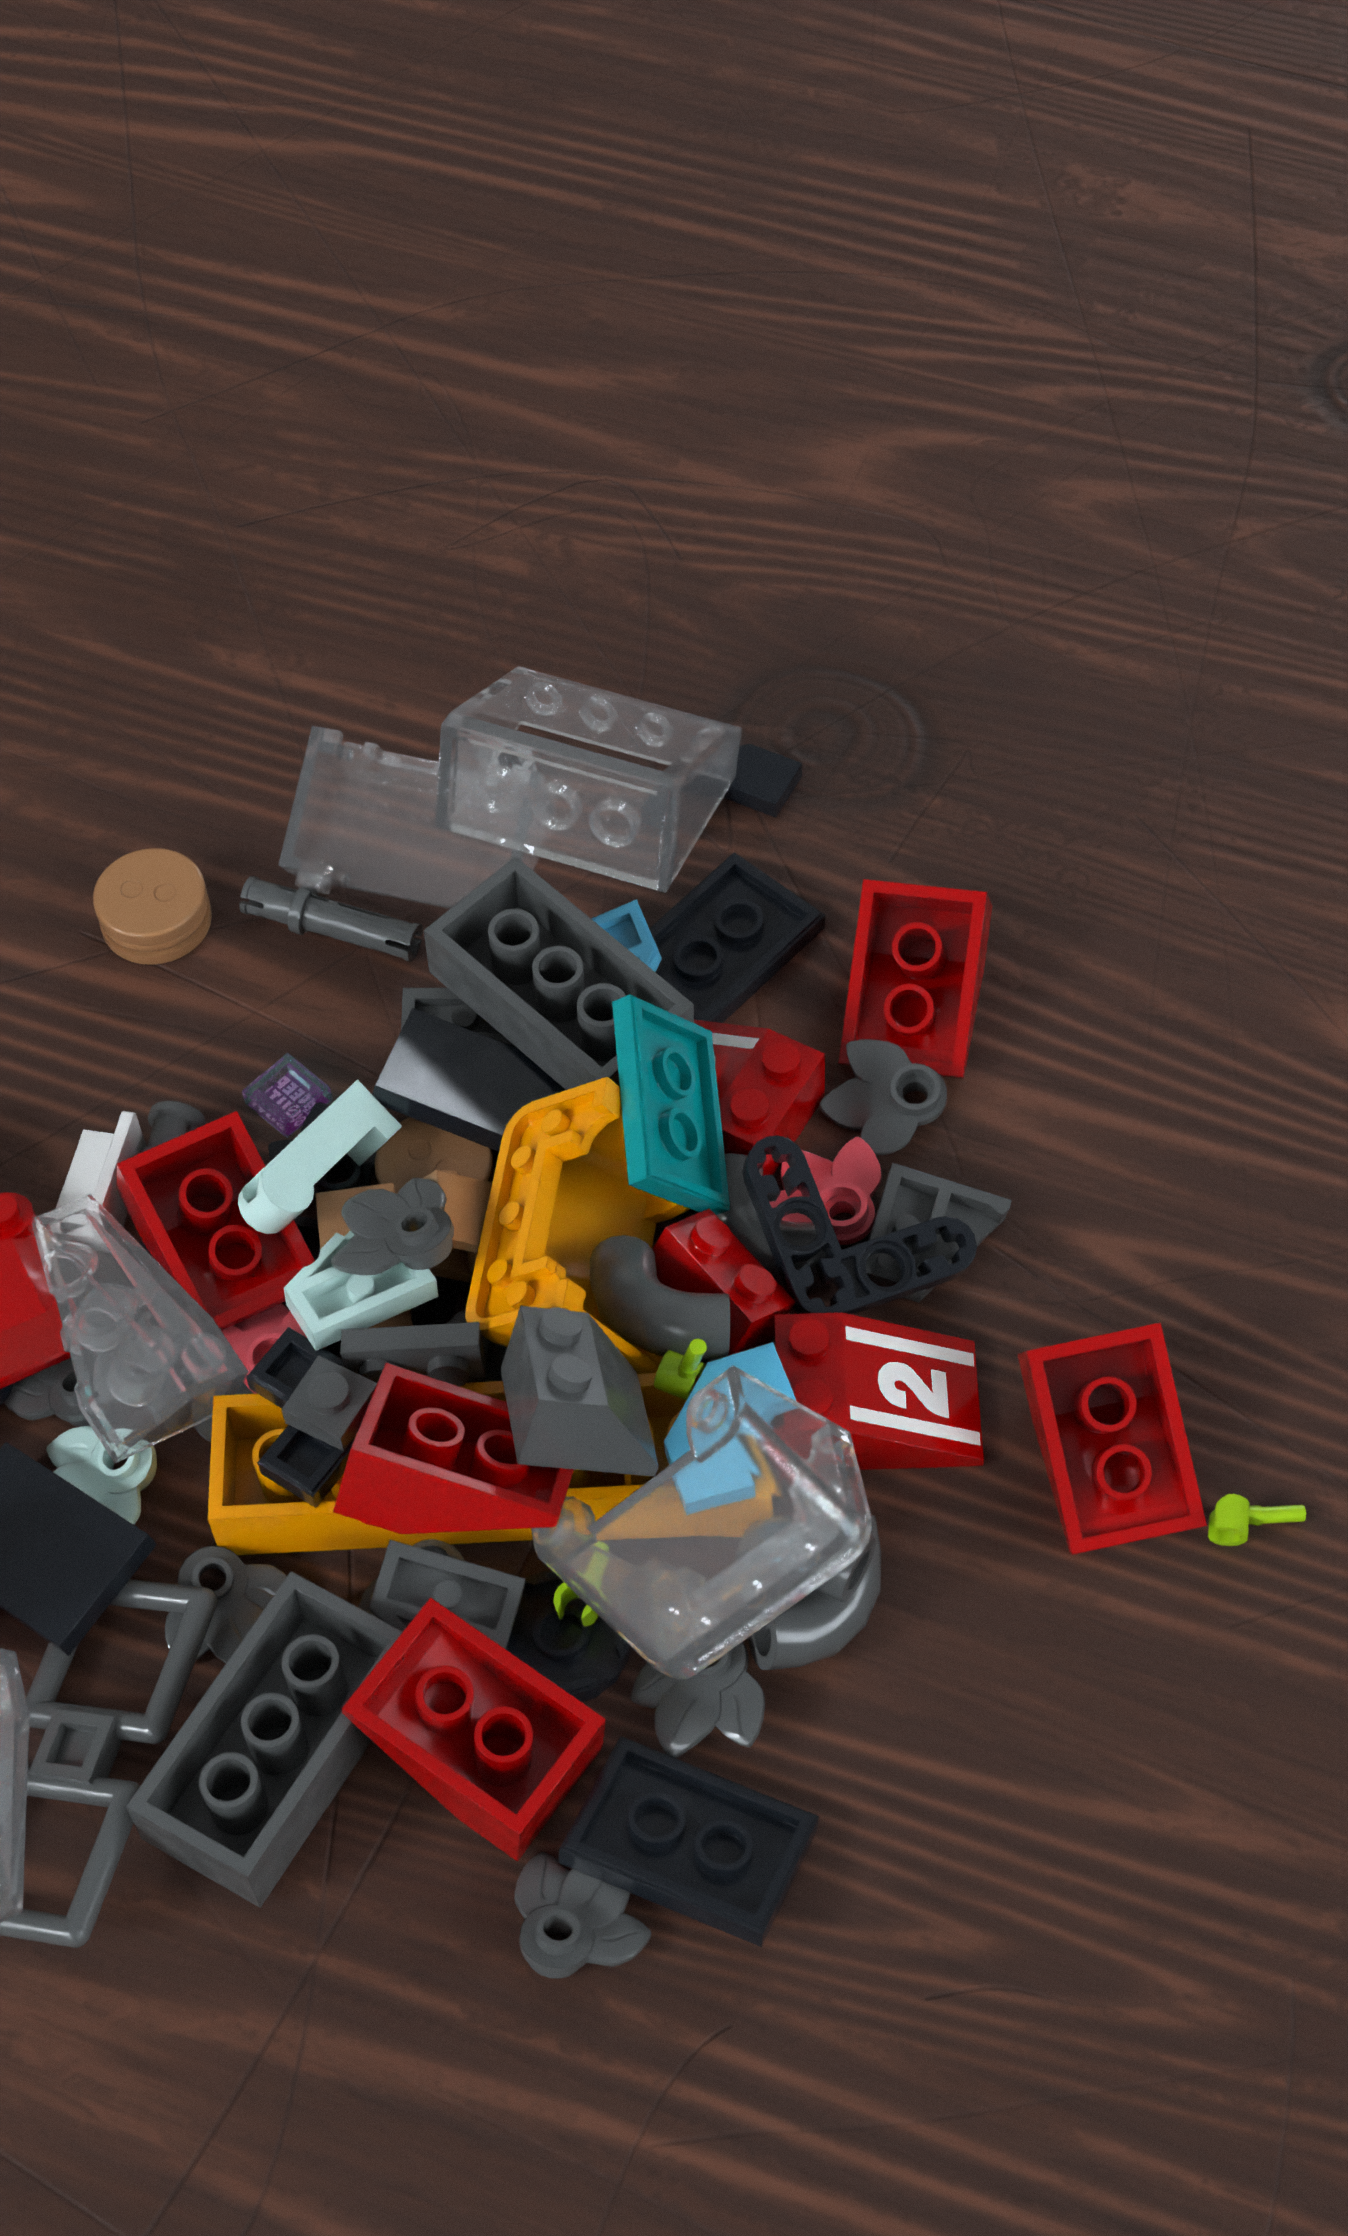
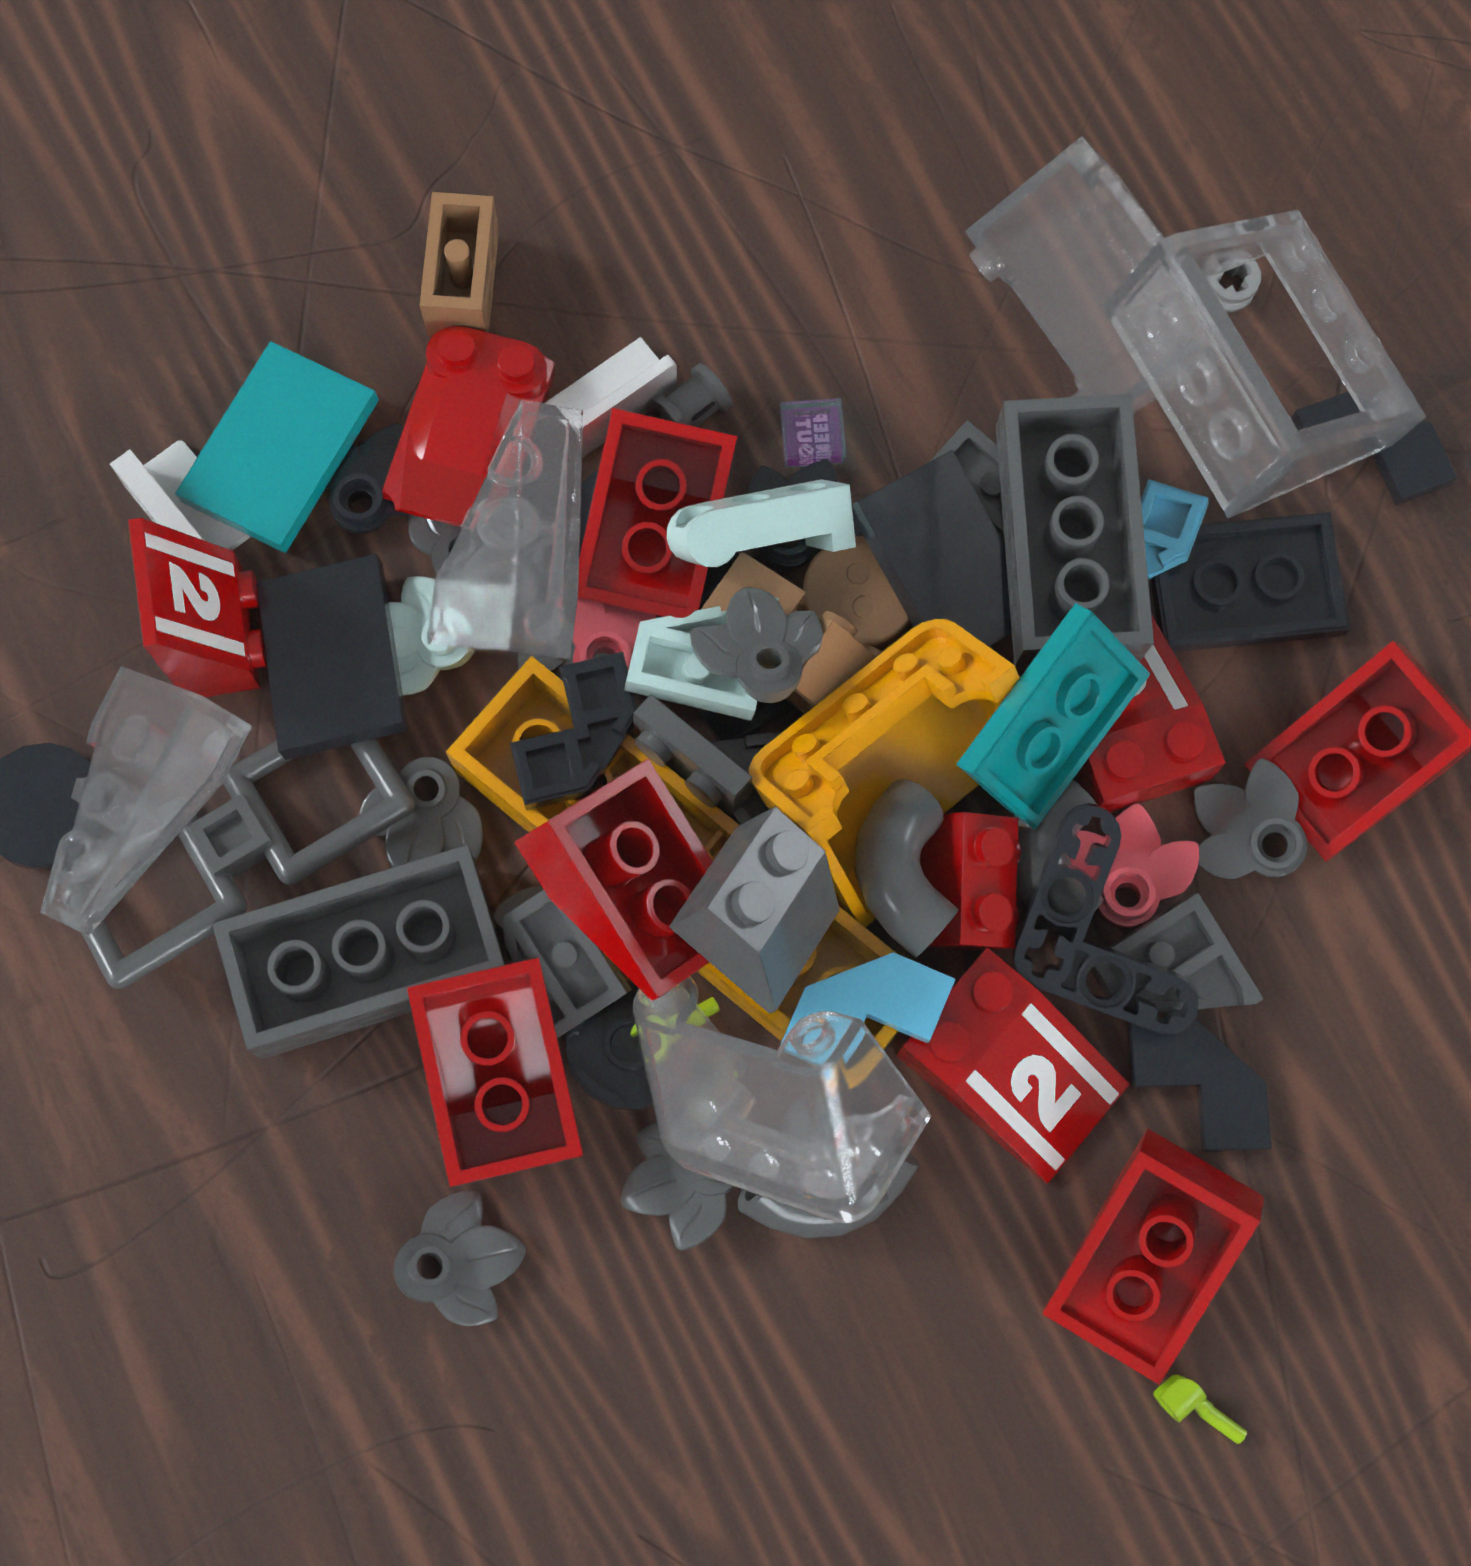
camera: 35 degrees right, 20 degrees up
(152, 906) = (848, 182): medium nougat head -> none
(309, 912) = (959, 287): dark grey pin -> none
(329, 1403) = (595, 745): dark grey plate -> none
(678, 1371) = (866, 941): lime hand -> none
(689, 1840) = (578, 1280): black tile -> none
(1048, 1284) = (1228, 1091): none -> black tile

